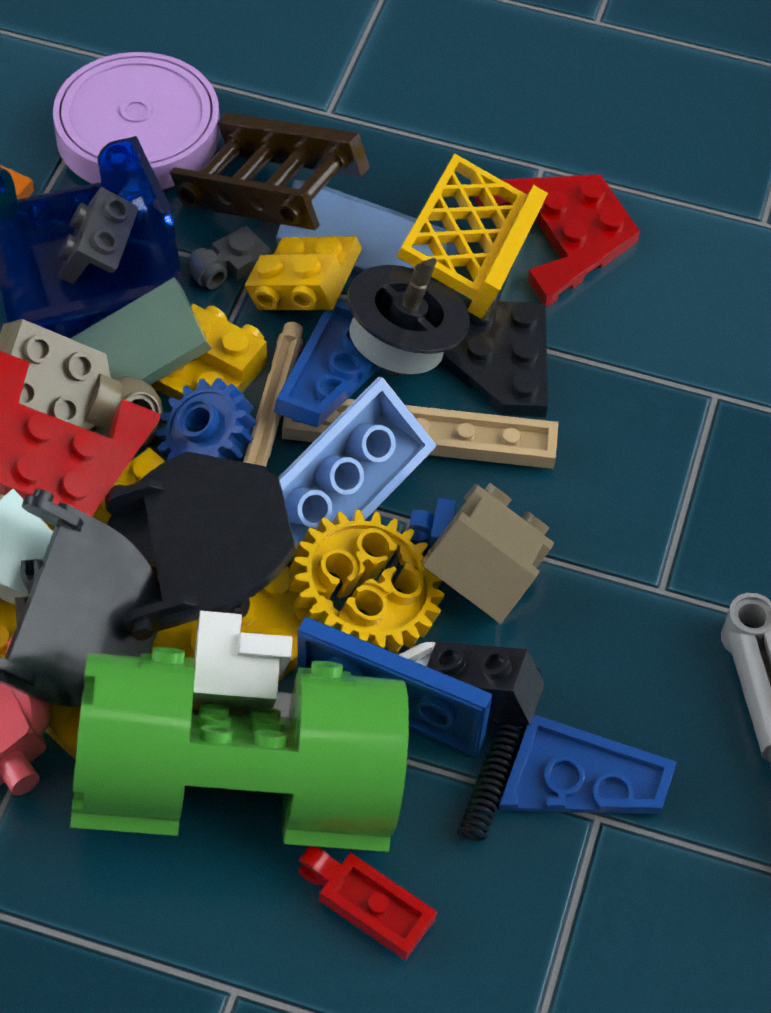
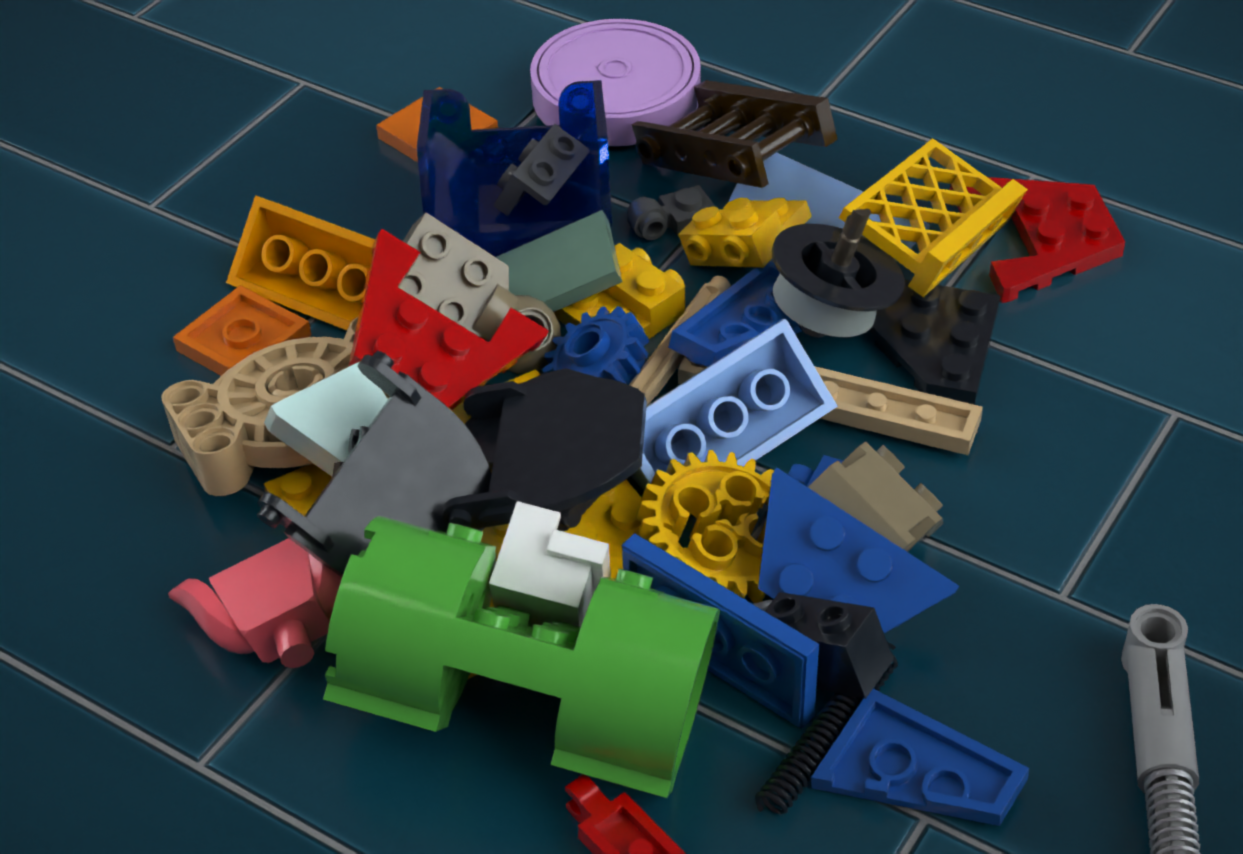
camera: 20 degrees right, 10 degrees down
(481, 604) = (832, 556): none -> blue wing

